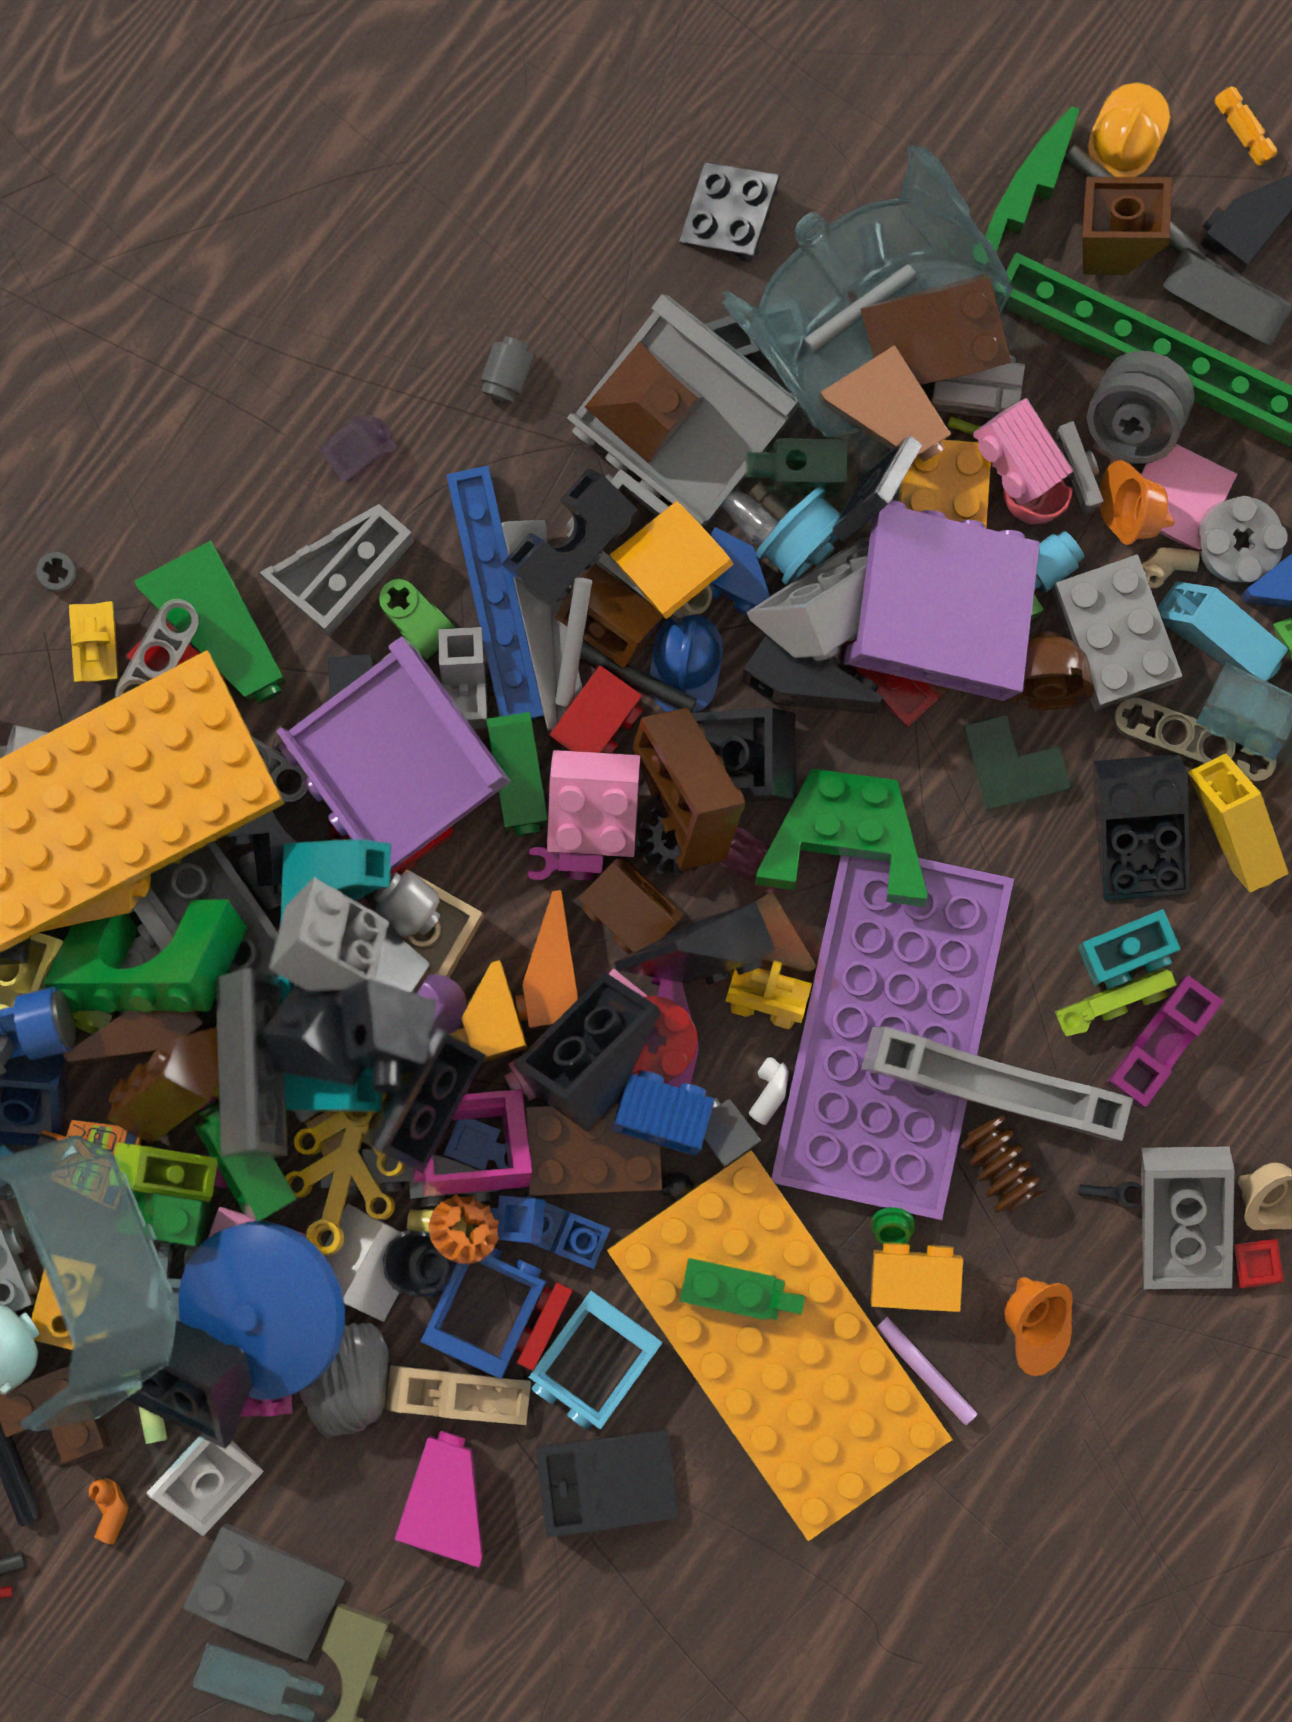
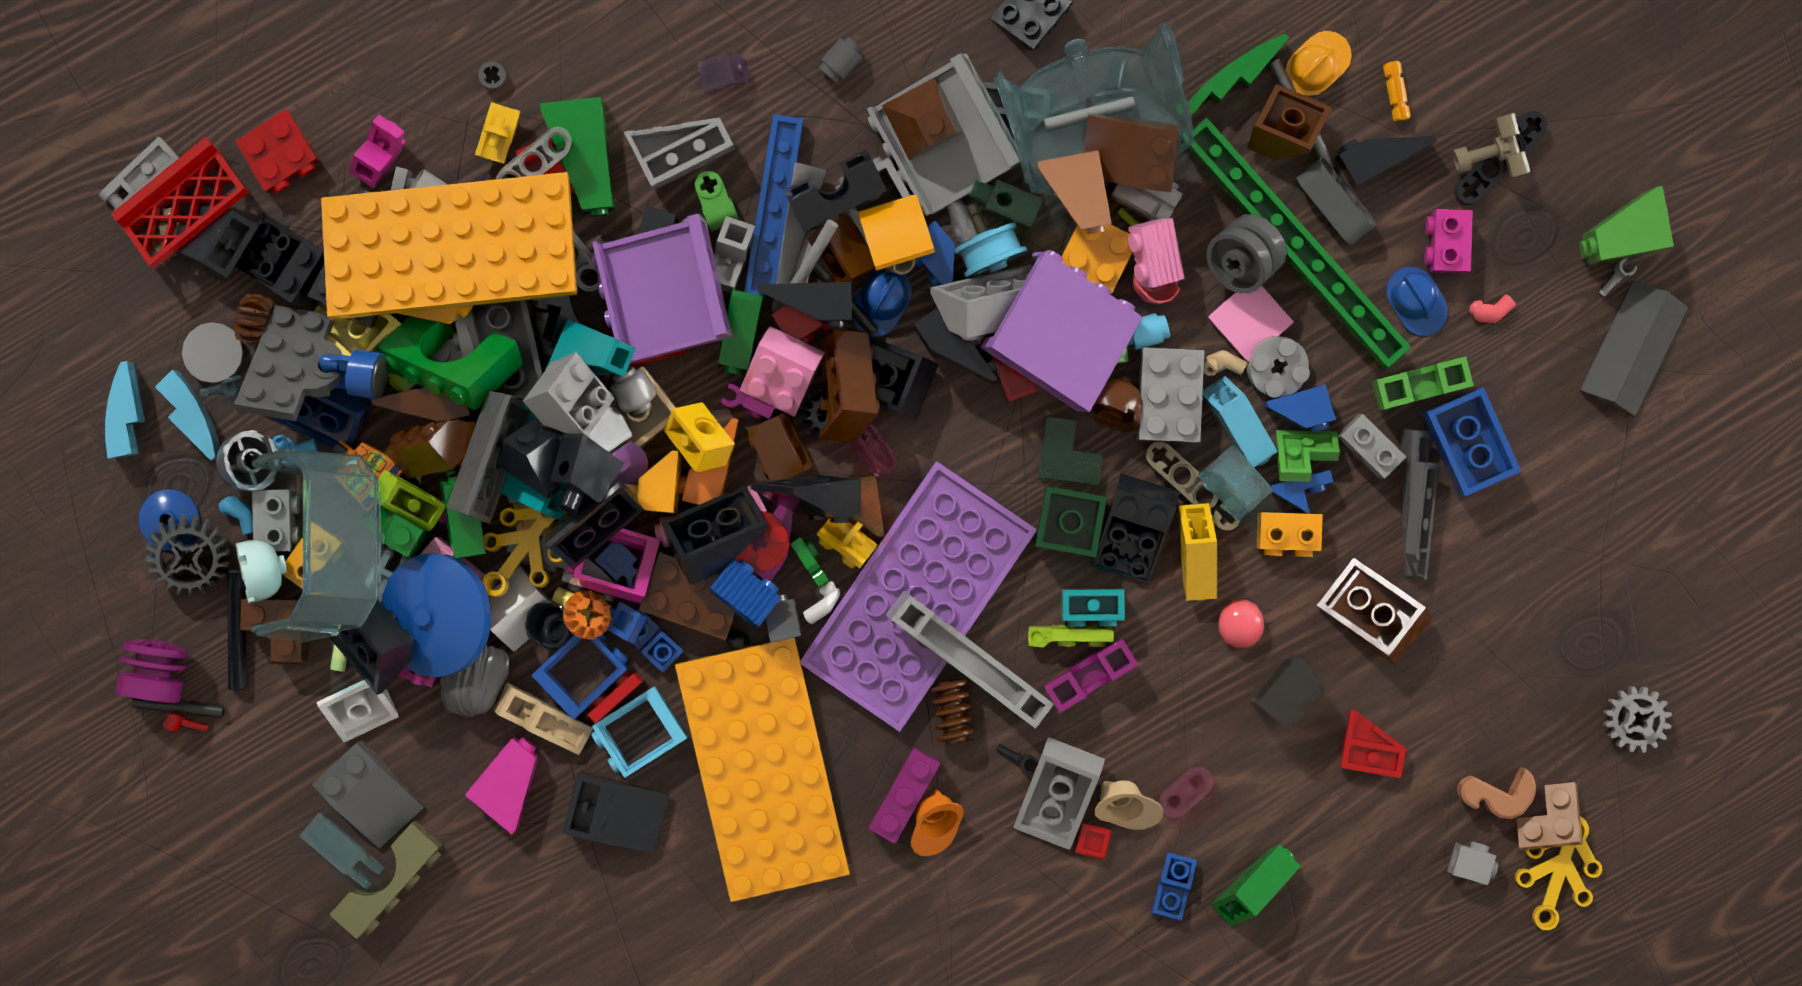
camera: 20 degrees right, 5 degrees up
(112, 1506) = (293, 701): orange arm -> none
(519, 932) = (699, 437): none -> yellow brick
(603, 690) = (821, 302): none -> black slope
(722, 1032) = (807, 552): none -> green plate
(737, 1290) = (748, 725): green hinge -> none
(851, 819) = (944, 446): green wing -> none
(876, 488) = (1047, 240): black tile -> none
(892, 1225) = (866, 723): green plate -> none
(916, 1278) = (867, 762): light orange brick -> none
(926, 1371) = (850, 823): lavender bar -> none
(983, 1302) = (904, 795): none -> magenta arch
(1054, 849) = (1070, 521): none -> dark green brick
(1084, 468) = (1193, 276): light grey plate -> none
(1133, 503) = (1215, 315): orange piece -> none

